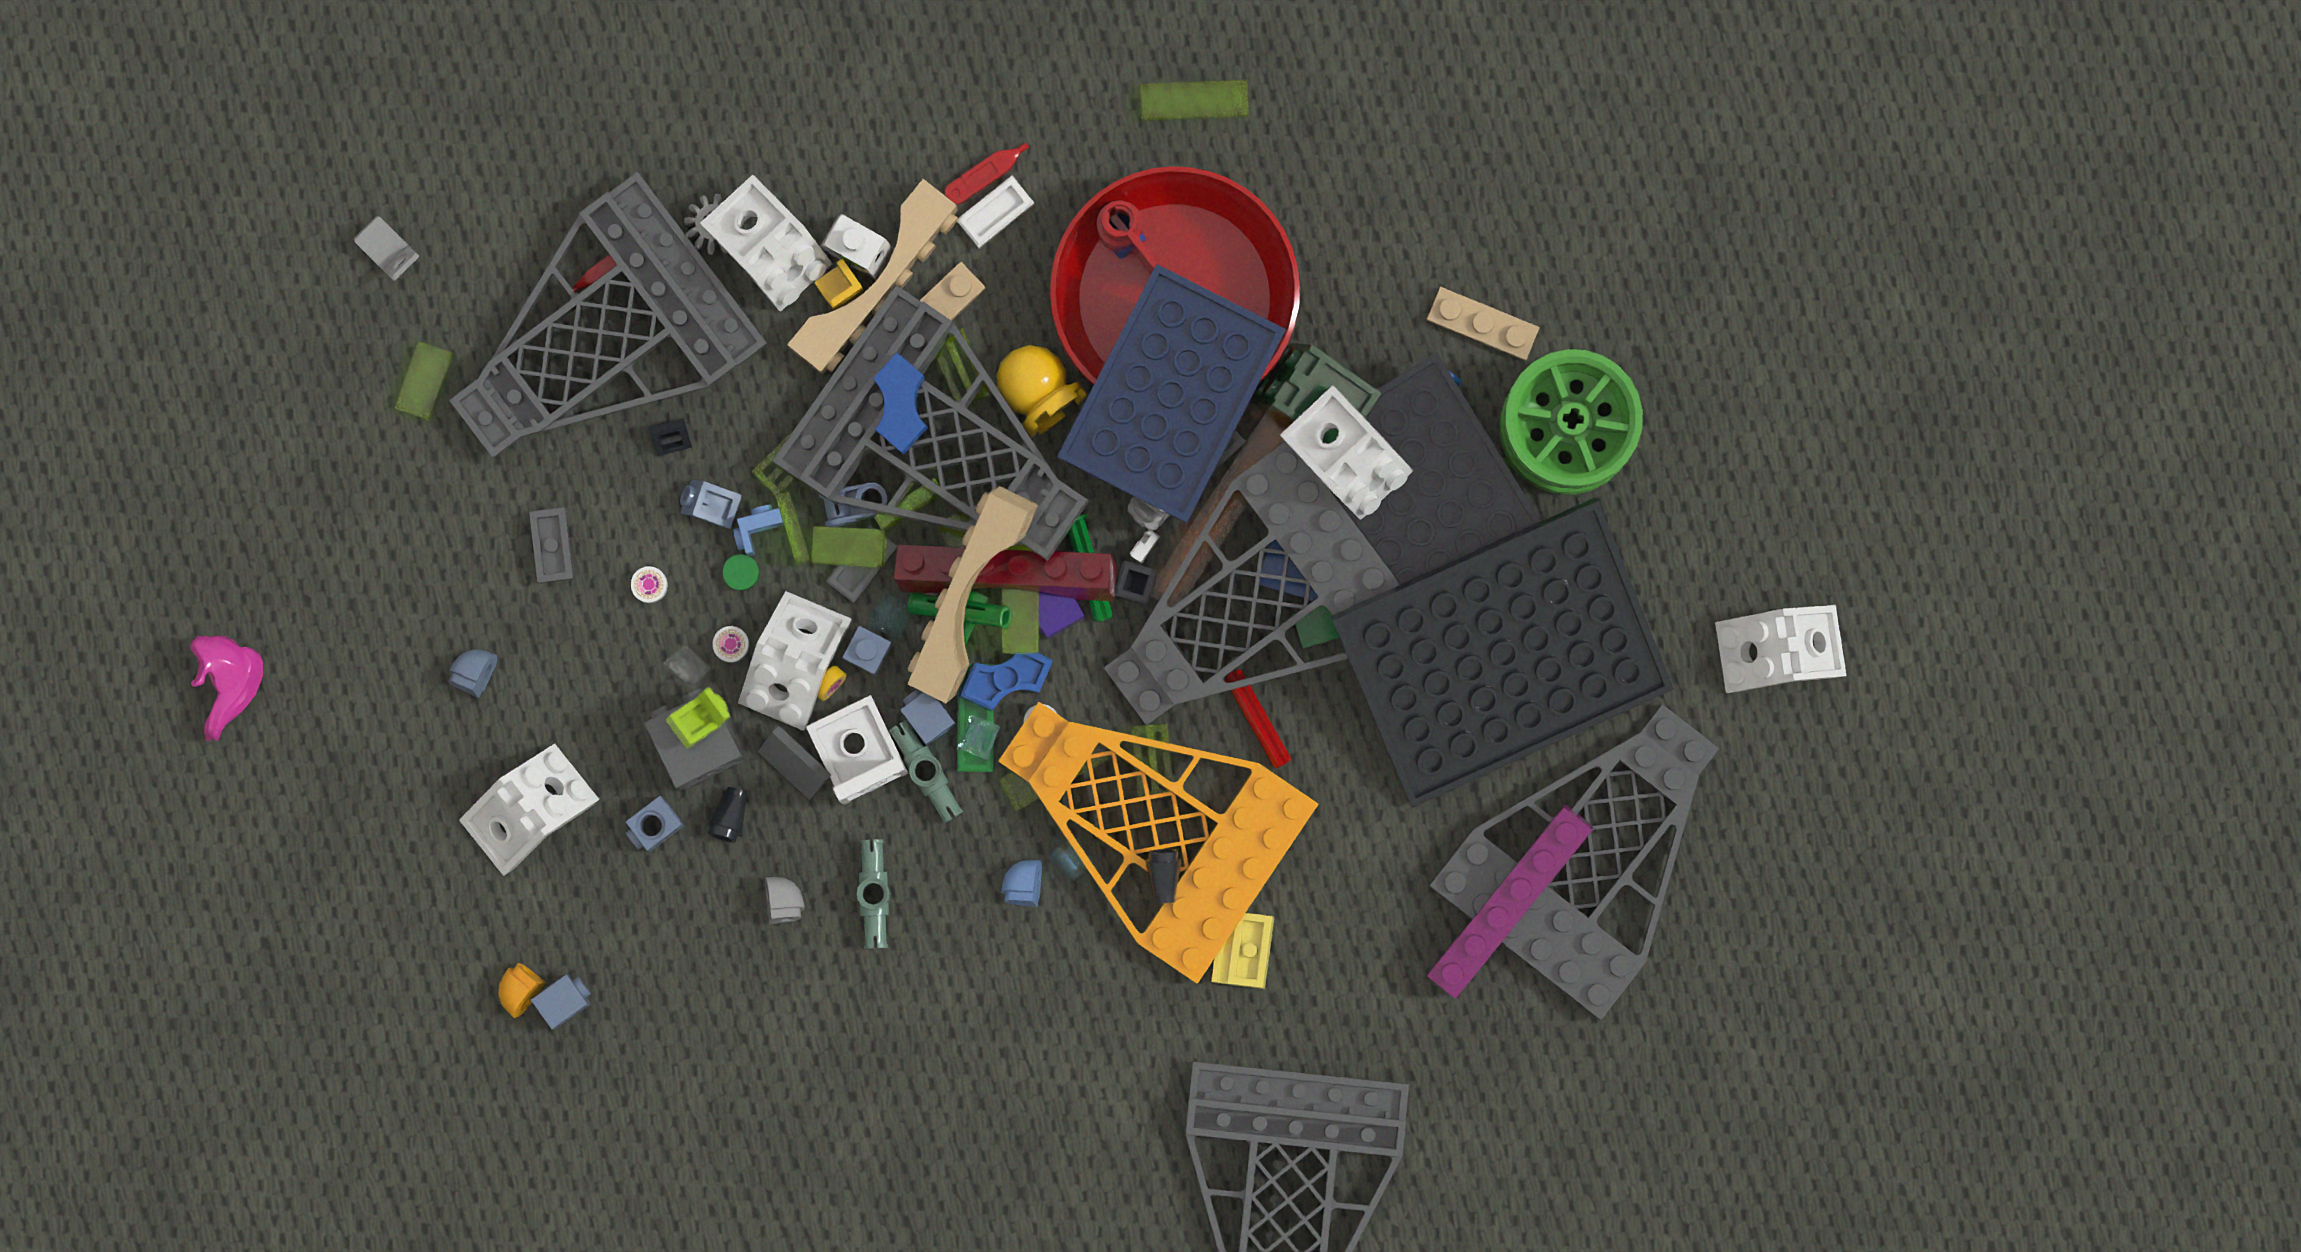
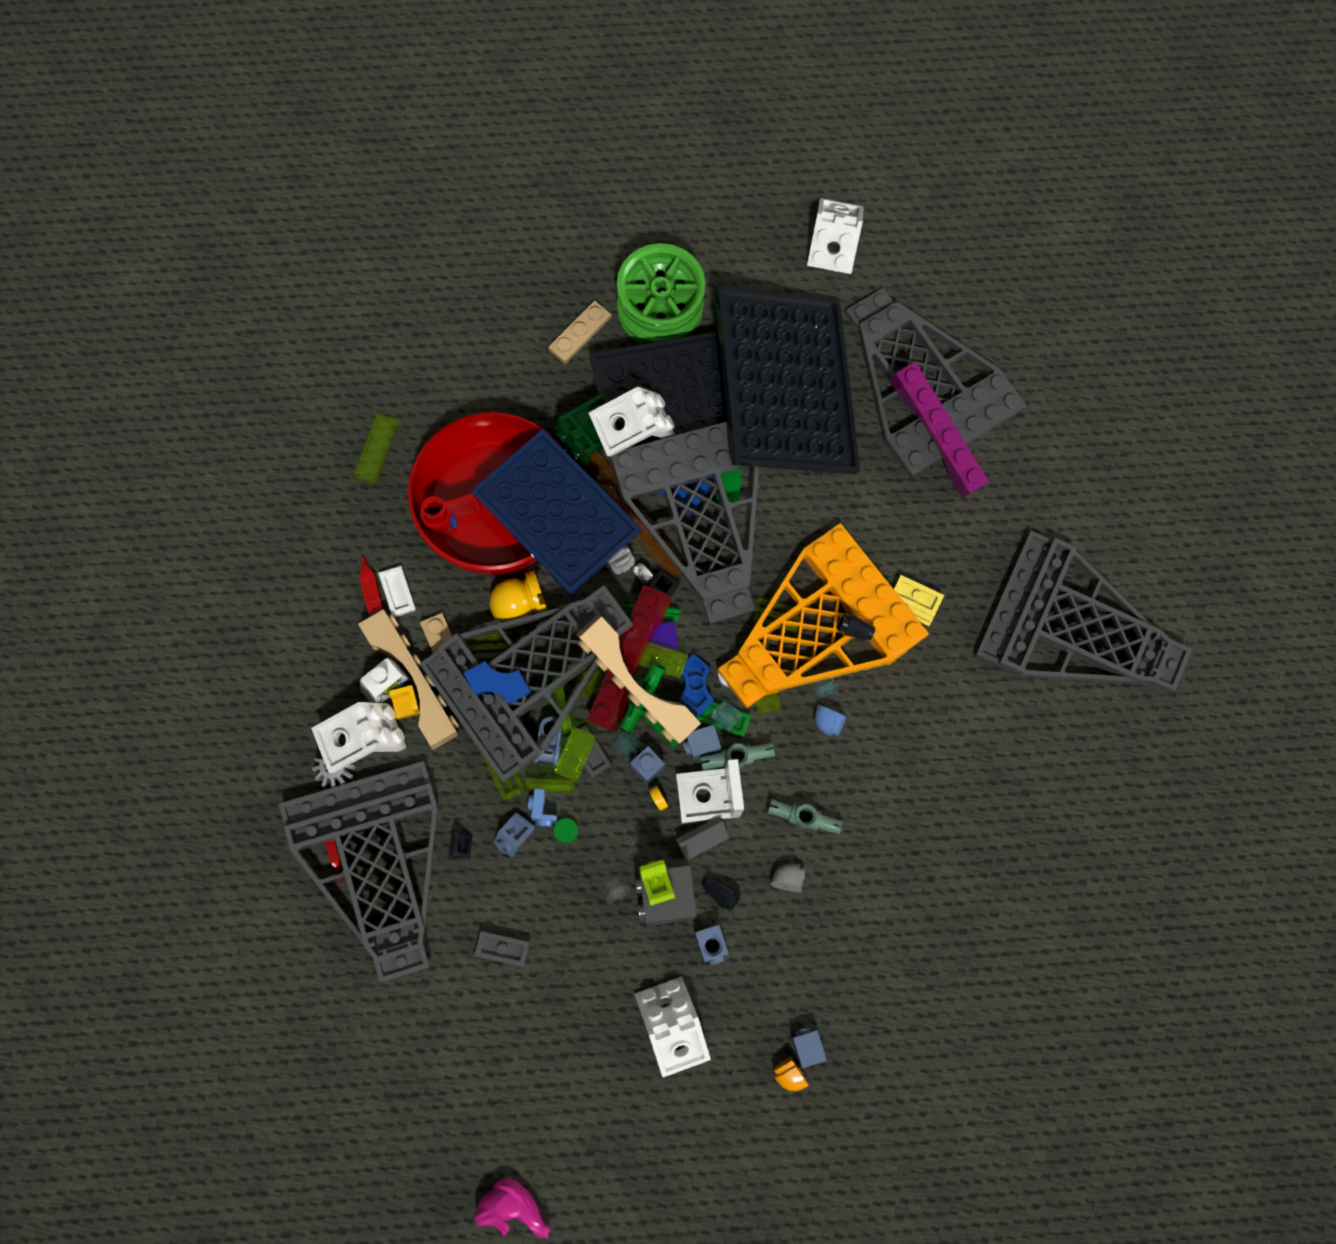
camera: 75 degrees left, 10 degrees down
(385, 247) = (260, 992): light grey bracket -> none
(424, 381) = (359, 998): clear neon green tile -> none
(472, 671) = (566, 1032): sand blue piece -> none
(649, 584) = (551, 893): tile -> none
(731, 644) = (610, 853): tile -> none
(792, 659) = (636, 814): white bracket -> none
(1259, 721) = (778, 542): red axle -> none

